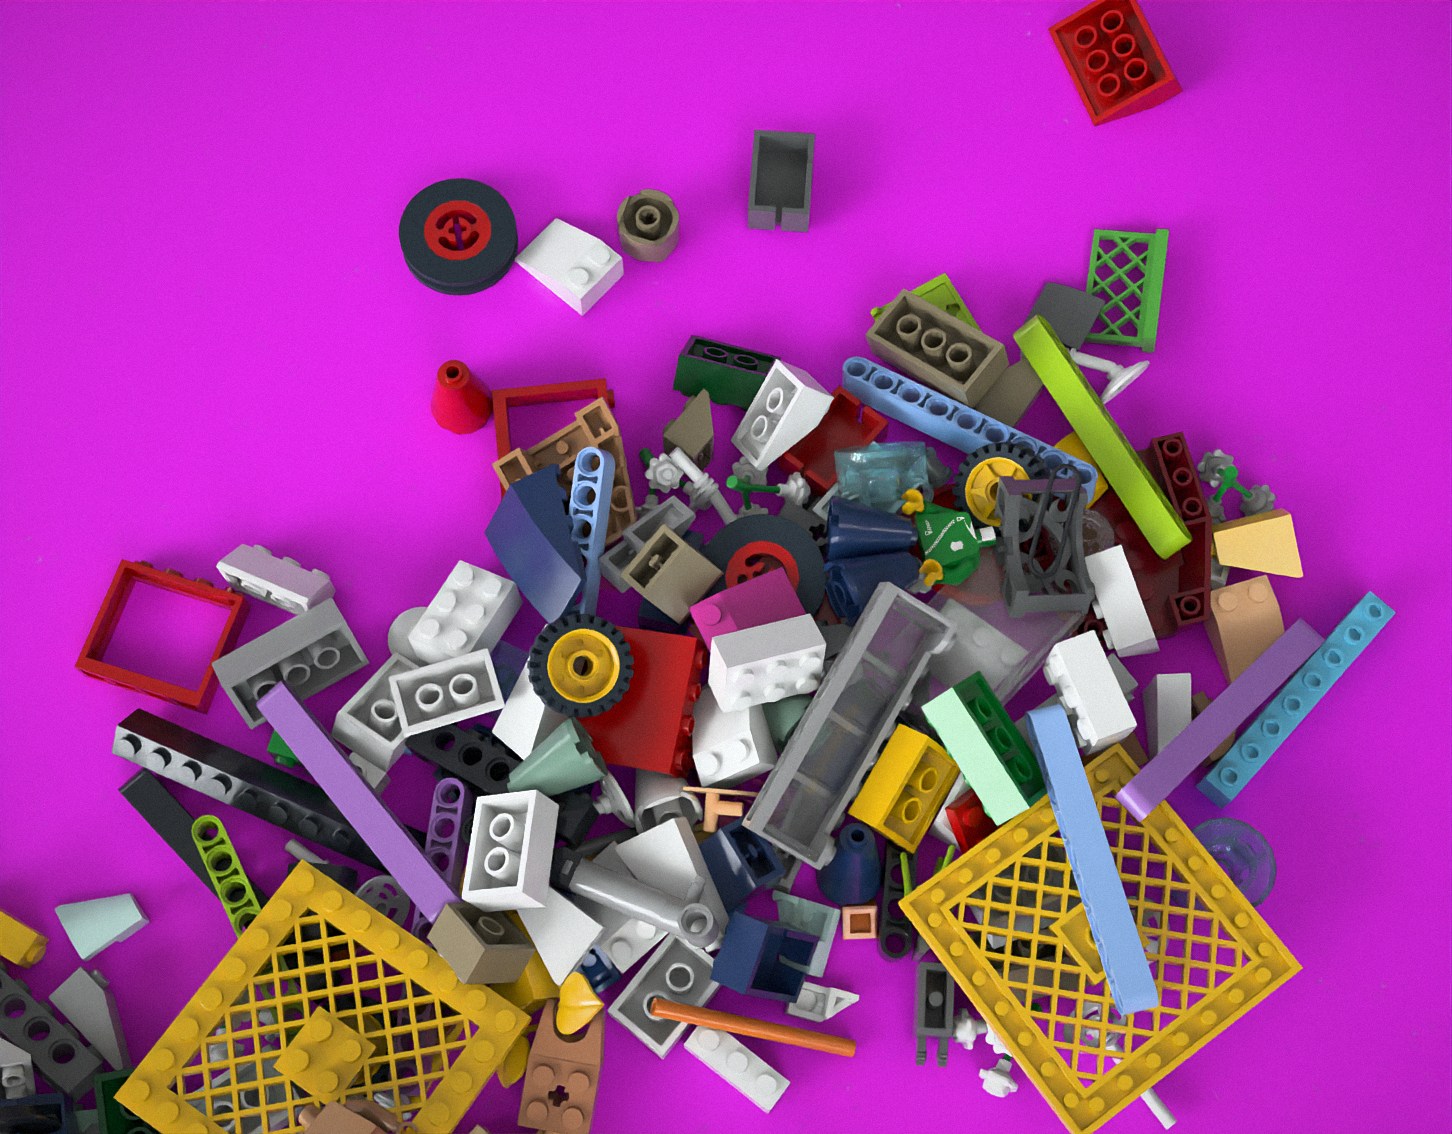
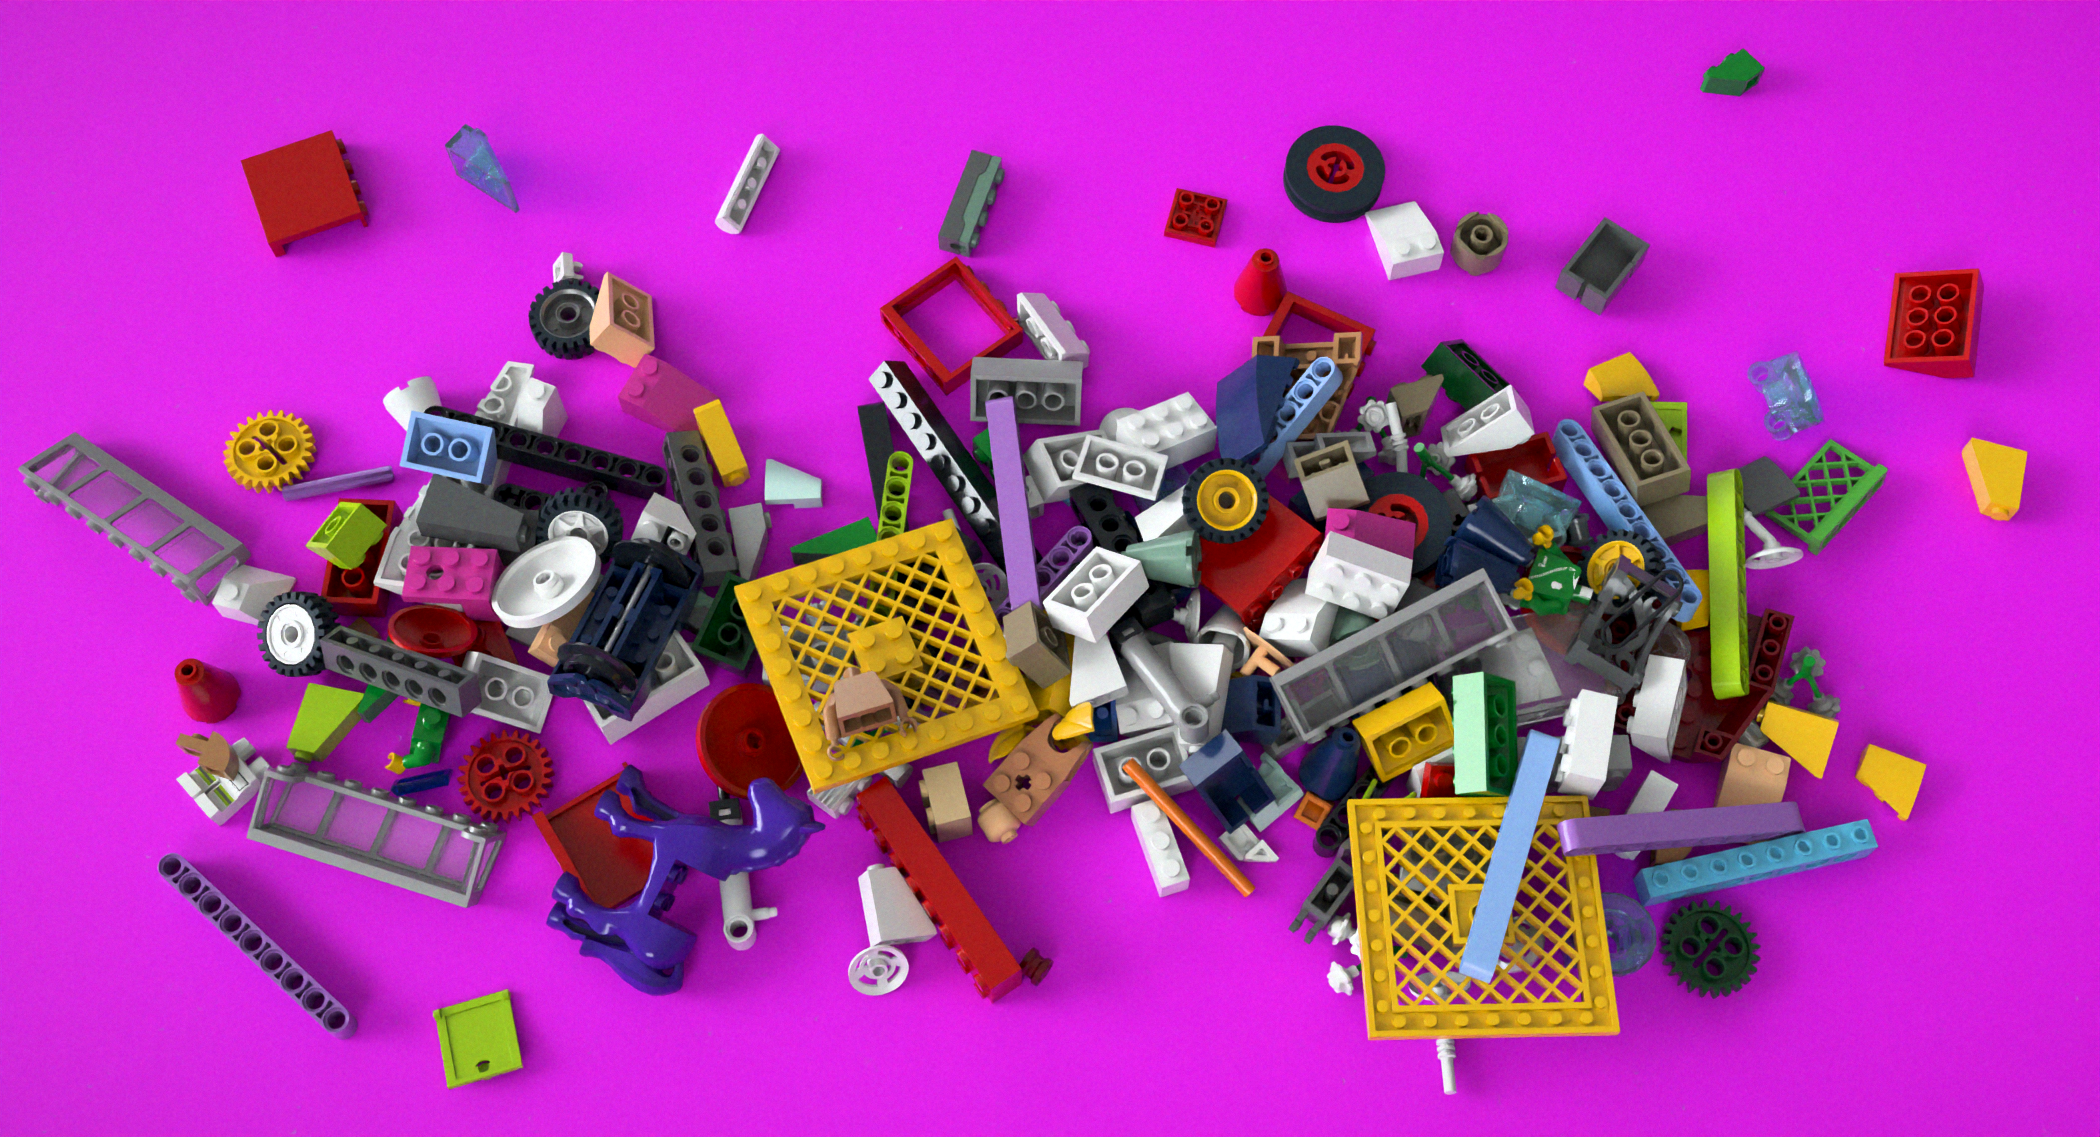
camera: 35 degrees right, 5 degrees down
(100, 489) = (970, 203): none -> piece
(196, 957) = (835, 542): none -> green slope
(347, 364) = (1195, 217): none -> red tile
(870, 286) = (1620, 379): none -> yellow slope
(1032, 209) = (1787, 394): none -> clear light blue piece
(1262, 178) = (1995, 477): none -> yellow slope
(1339, 819) = (1731, 968): none -> dark green gear
(1358, 532) = (1891, 778): none -> yellow slope

